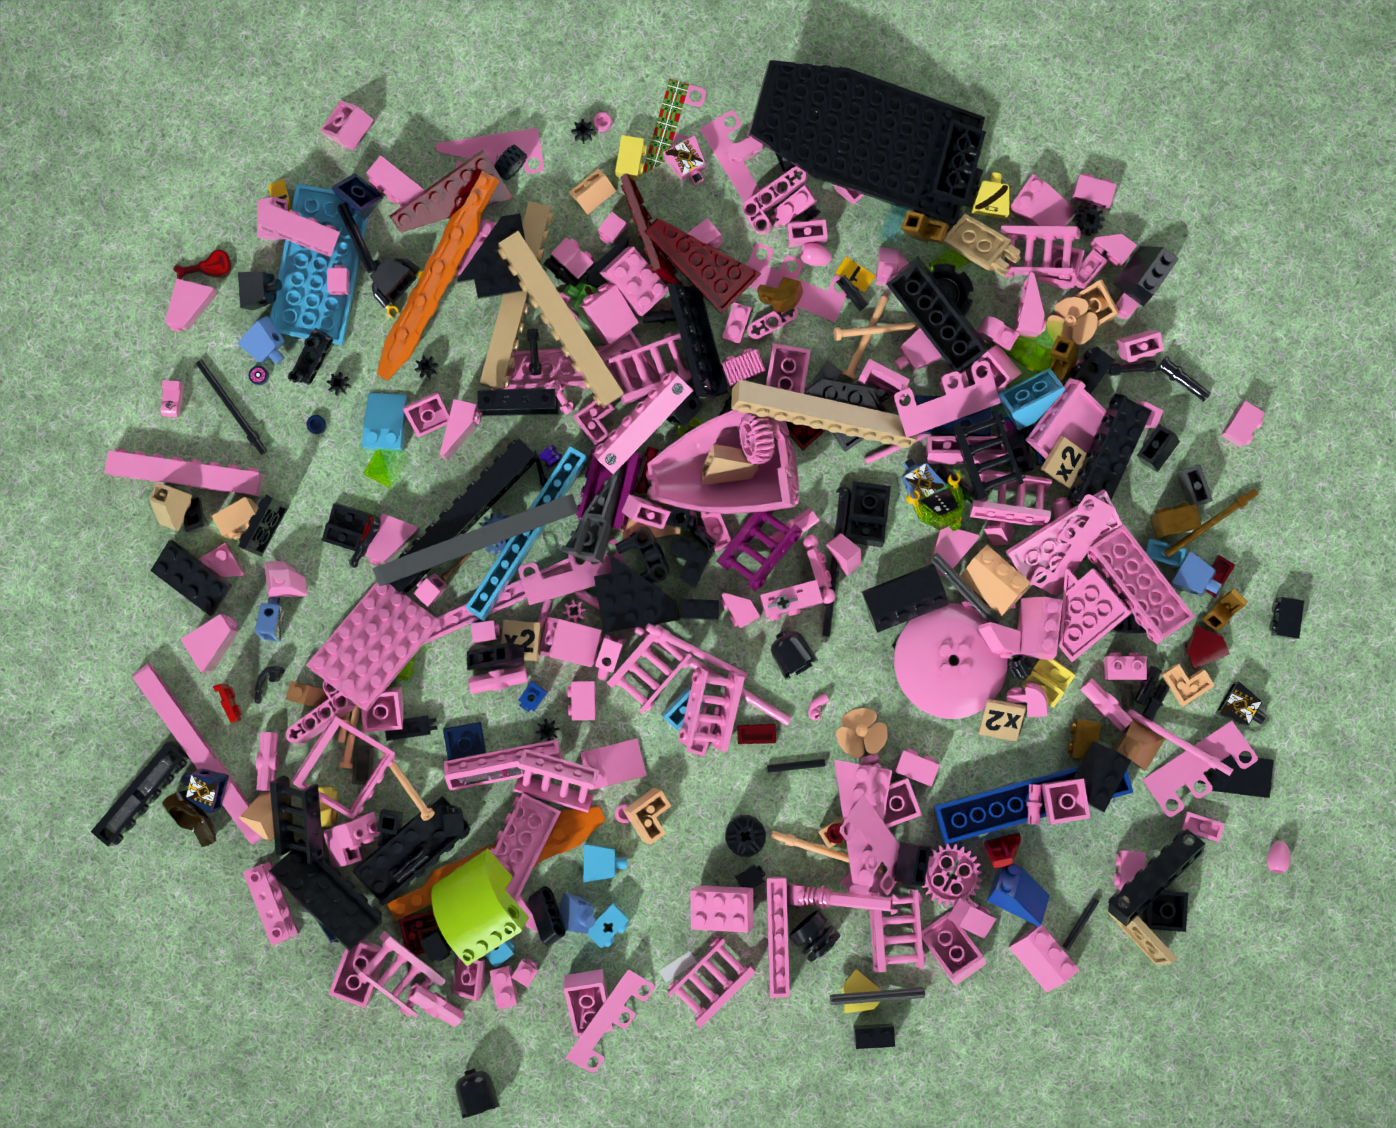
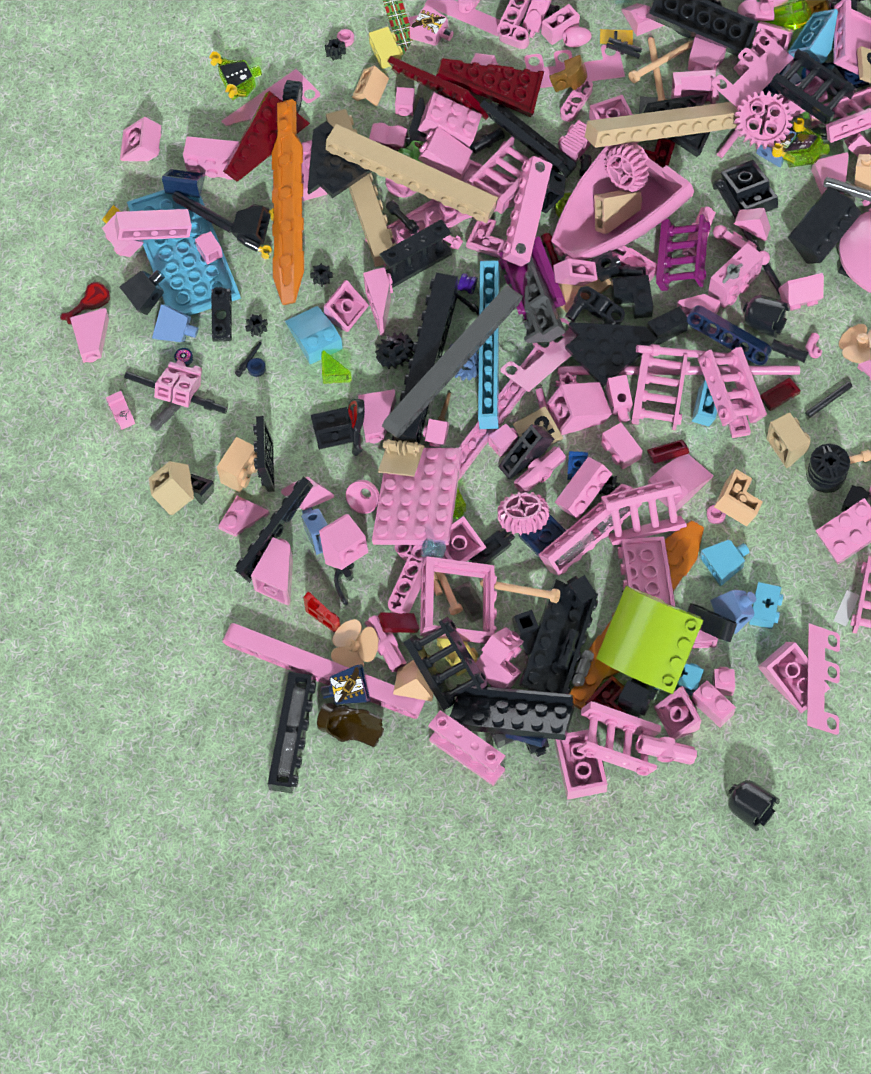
camera: 30 degrees left, 20 degrees down
(184, 473) = (190, 451): bright pink brick -> none
(191, 578) = (221, 535): black plate -> none
(202, 616) = (275, 528): none -> black wing
(208, 425) = (164, 416): none -> flat silver axle
(235, 403) = (178, 383): none -> bright pink hips
(238, 753) = (350, 648): none -> light nougat piece
(281, 651) = (342, 542): none -> bright pink slope
(287, 751) = (398, 622): none -> dark red tile
(298, 420) = (242, 367): none -> black piece
(306, 694) = (384, 571): medium nougat slope -> none
(329, 612) = (359, 502): none -> bright pink piece
(348, 710) = (433, 549): none -> clear light blue wheel
(380, 601) = (400, 457): none -> tan hinge
(416, 887) = (583, 668): none -> flat silver axle
(445, 478) = (394, 350): none -> black gear
(468, 722) = (523, 513): none -> bright pink gear
(473, 107) = (236, 75): none -> torso
(520, 724) = (583, 488): none -> bright pink brick
(620, 730) = (668, 451): none -> dark red tile
(728, 789) = (788, 439): none -> tan slope
(736, 323) = (549, 116): bright pink plate -> none
(745, 654) = (723, 327): none -> dark blue beam
(792, 698) = (789, 350): none -> black pin
(839, 651) = (802, 291): none -> bright pink slope
(906, 448) = (748, 116): none -> bright pink gear

